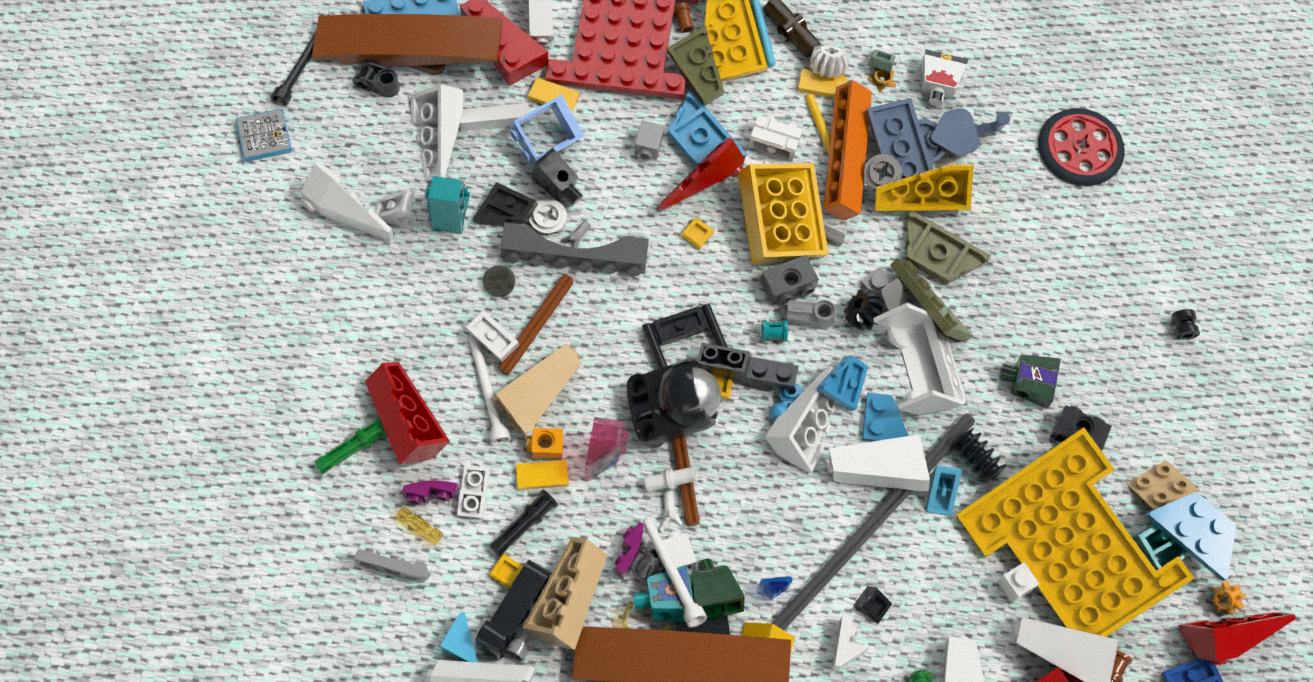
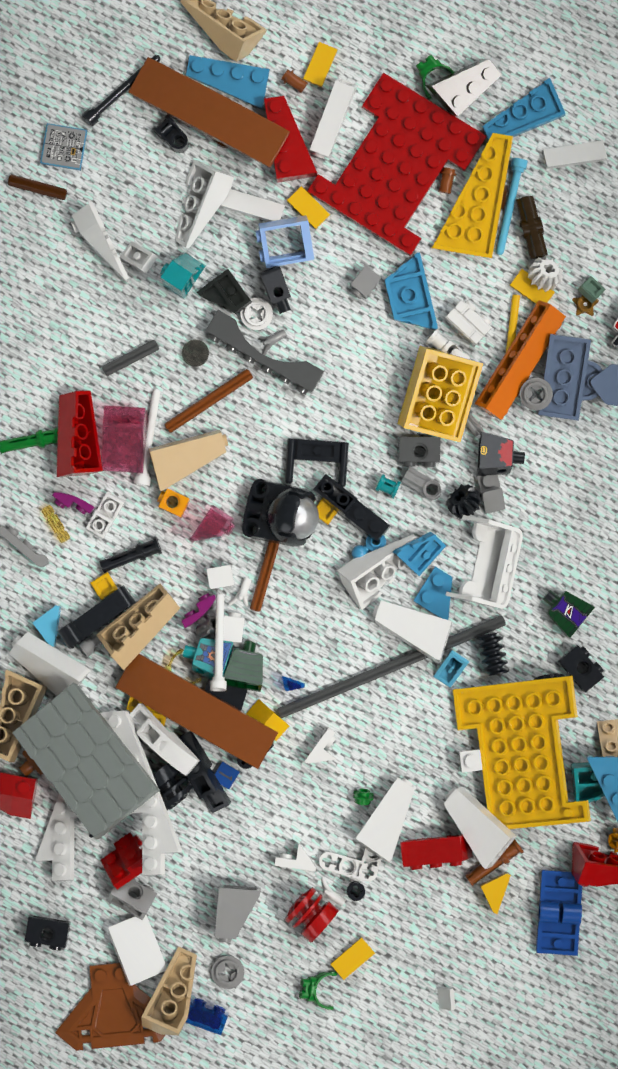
camera: 30 degrees right, 20 degrees up
(250, 184) = (37, 187): none -> reddish brown axle
(429, 313) = (130, 357): none -> dark grey axle
(459, 396) = (124, 439): none -> clear pink slope
(492, 336) = (169, 399): white plate -> none
(542, 475) = (161, 524): yellow tile -> none
(637, 500) = (220, 577): none -> white panel
(671, 479) = (253, 570): white pin -> none
(696, 62) = (434, 233): olive wing -> none
(697, 233) = (368, 378): yellow tile -> none
(716, 166) = (400, 333): red wedge -> none
(872, 250) = (497, 455): none -> black torso
(873, 603) = (358, 727): black slope -> none
(930, 301) = (521, 525): olive wing -> none
(932, 190) = (567, 427): yellow wedge -> none
(940, 251) = (551, 476): olive wing -> none

